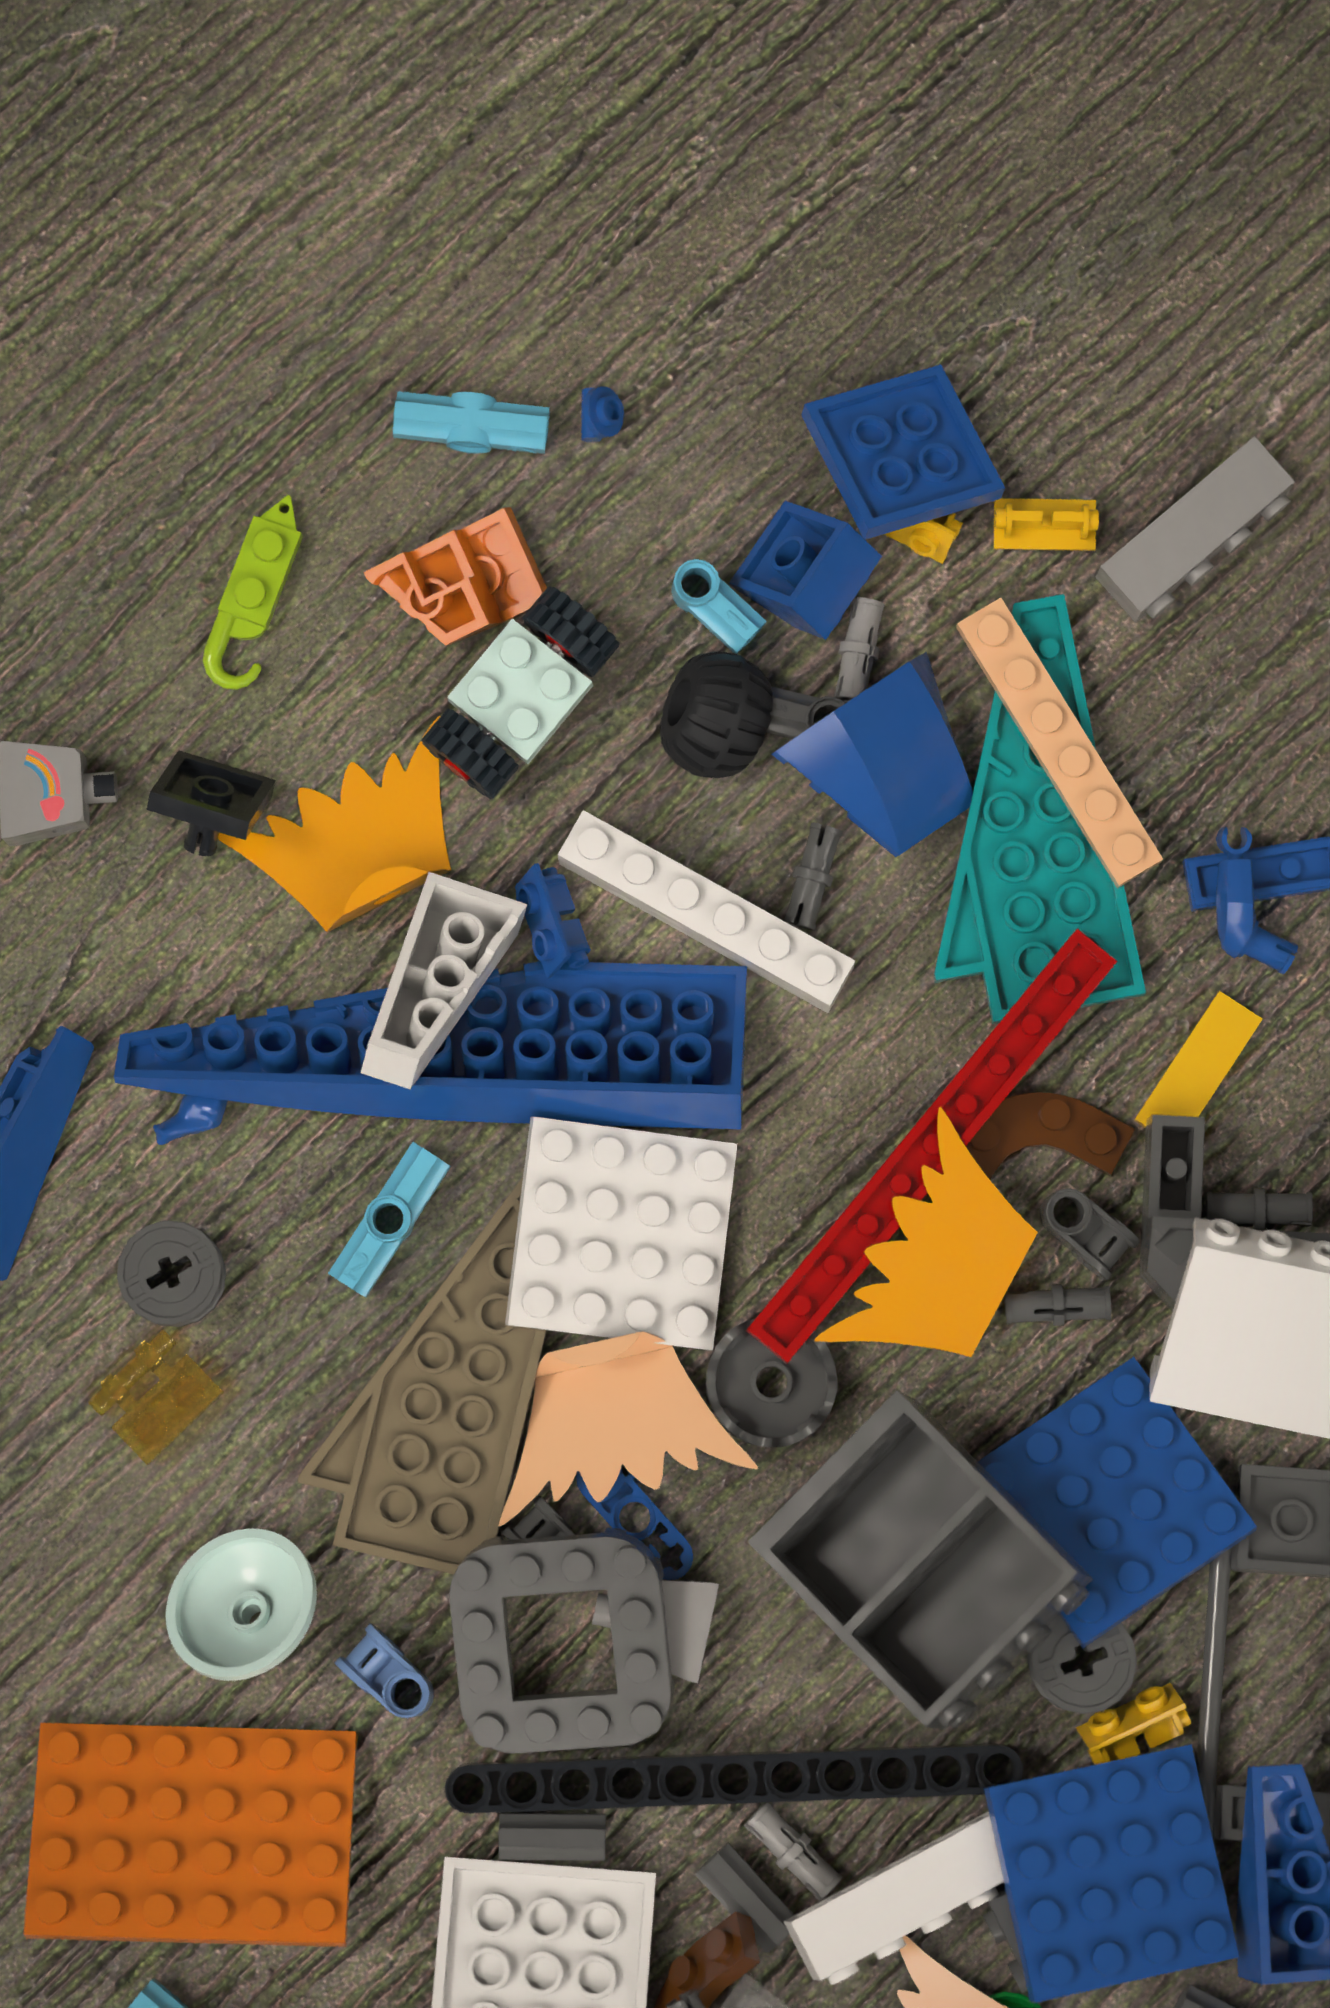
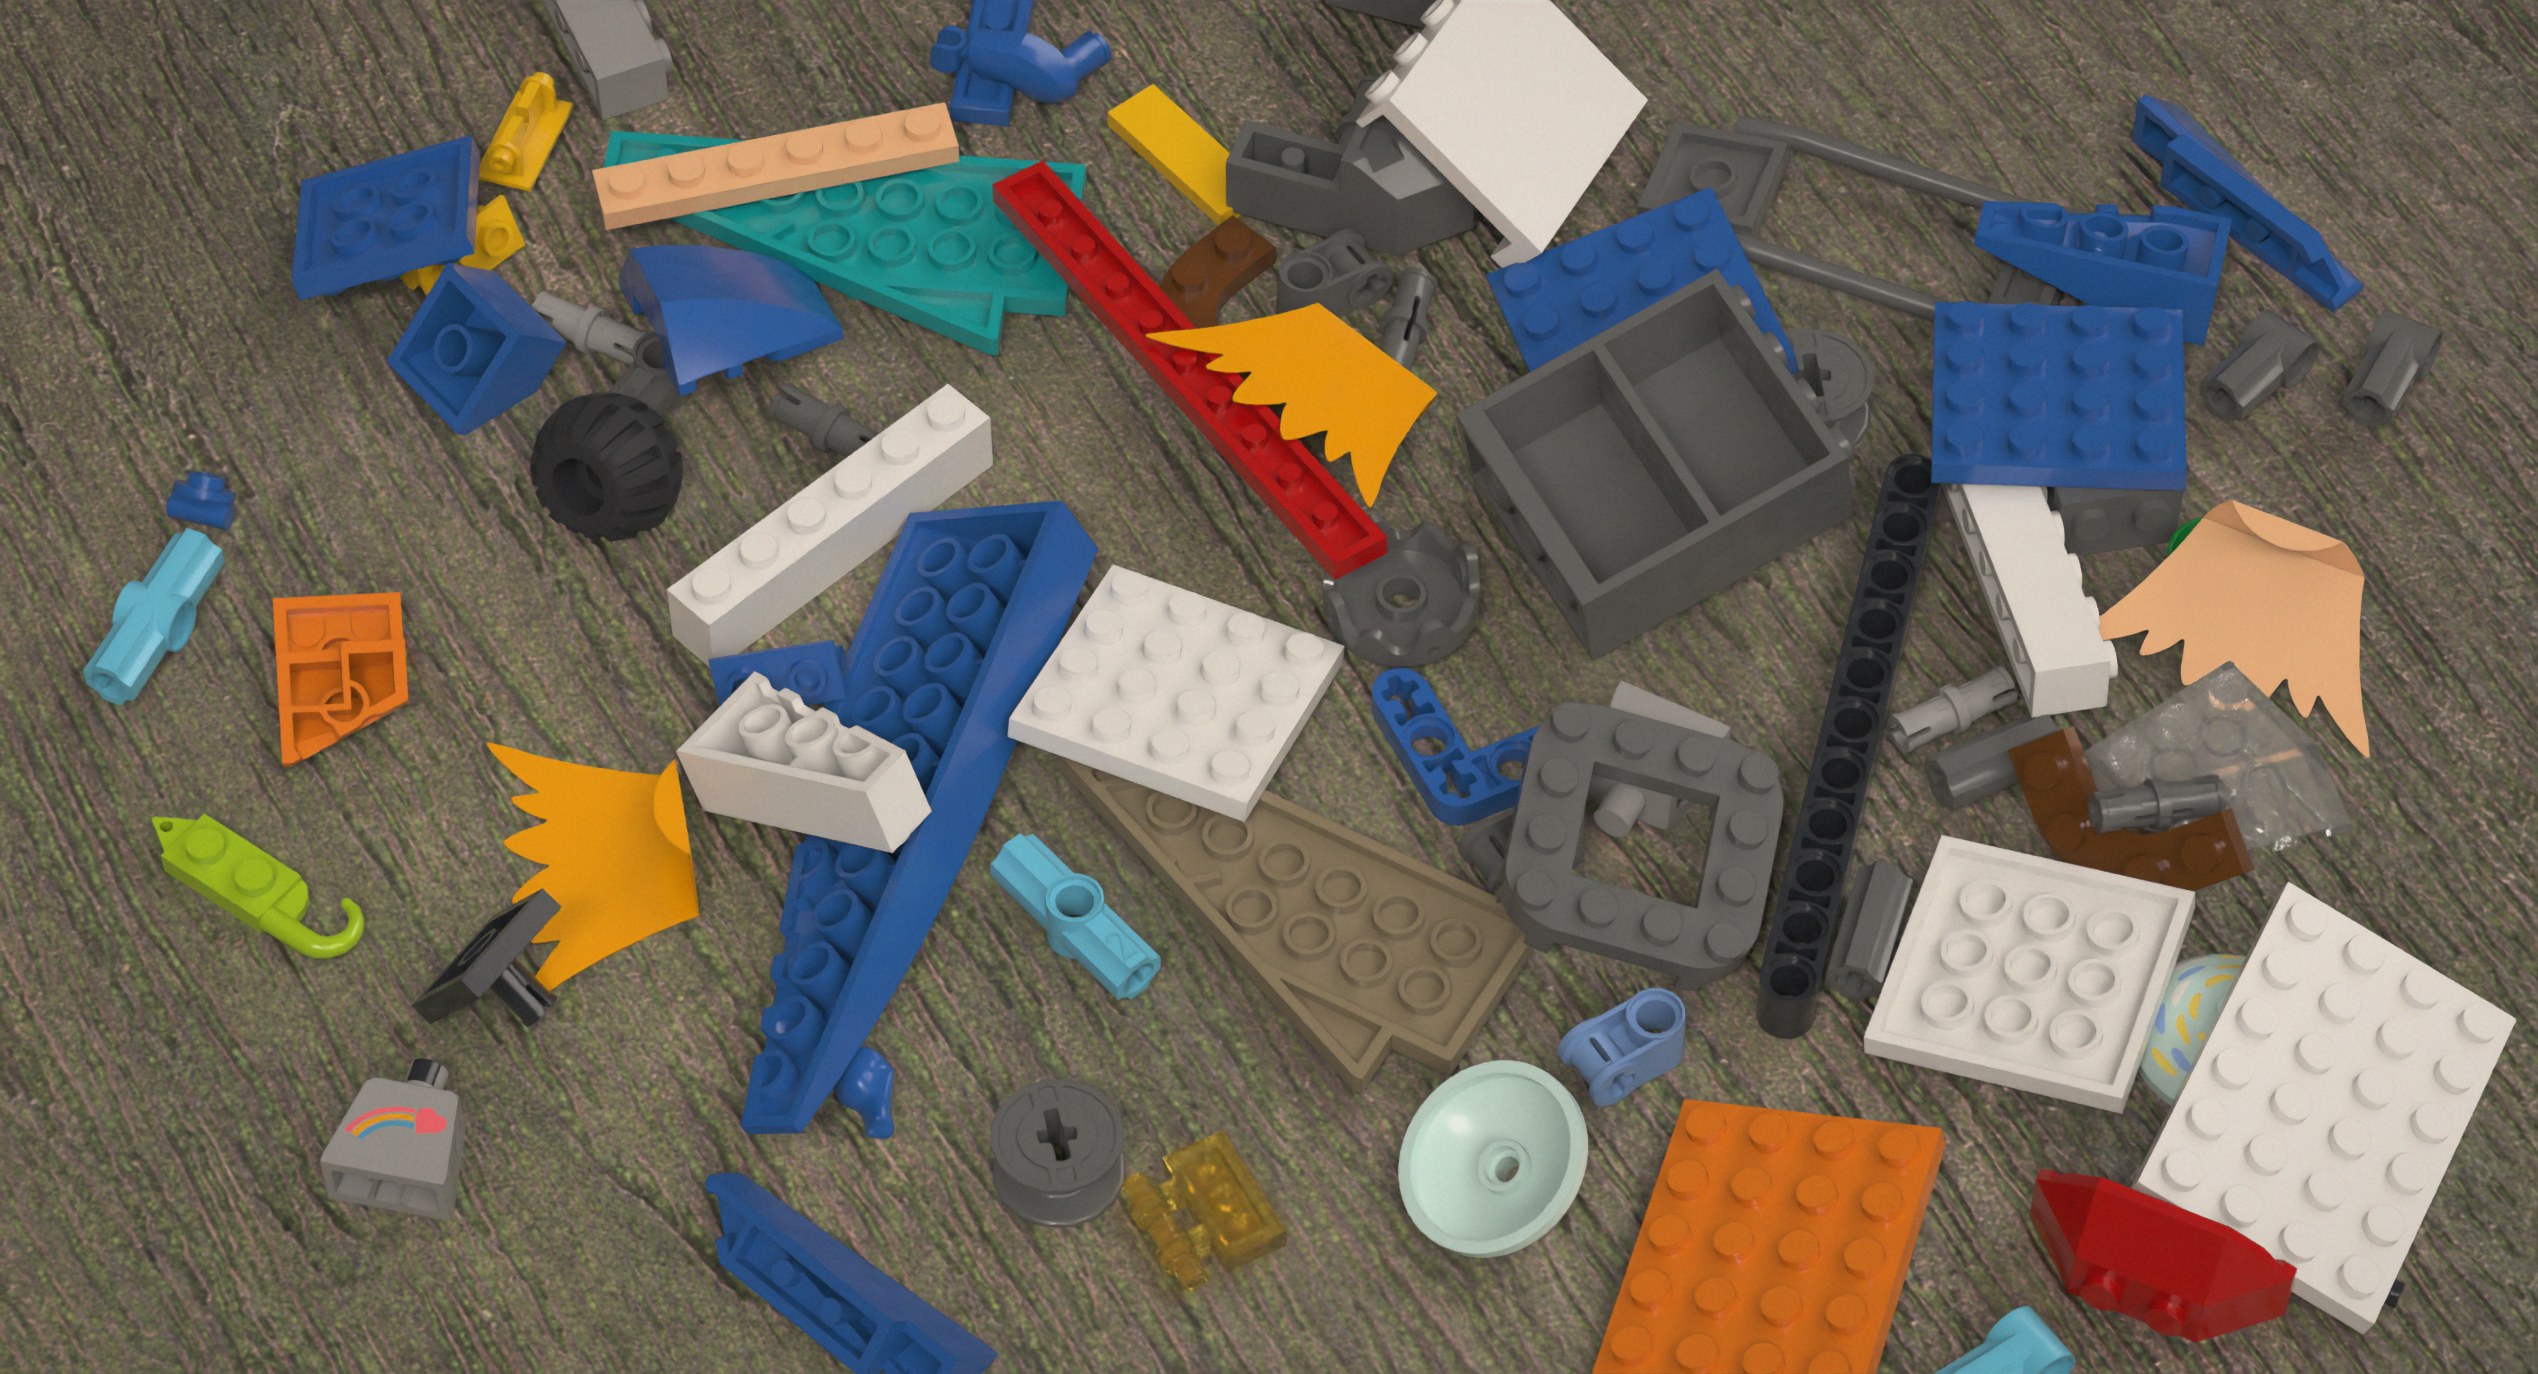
camera: 75 degrees left, 30 degrees down
(520, 691) = (501, 627): plate -> none
(612, 1408) = (1389, 750): light nougat piece -> none
(720, 609) = (460, 443): medium azure piece -> none
(1154, 1712) = (1899, 367): yellow hinge -> none

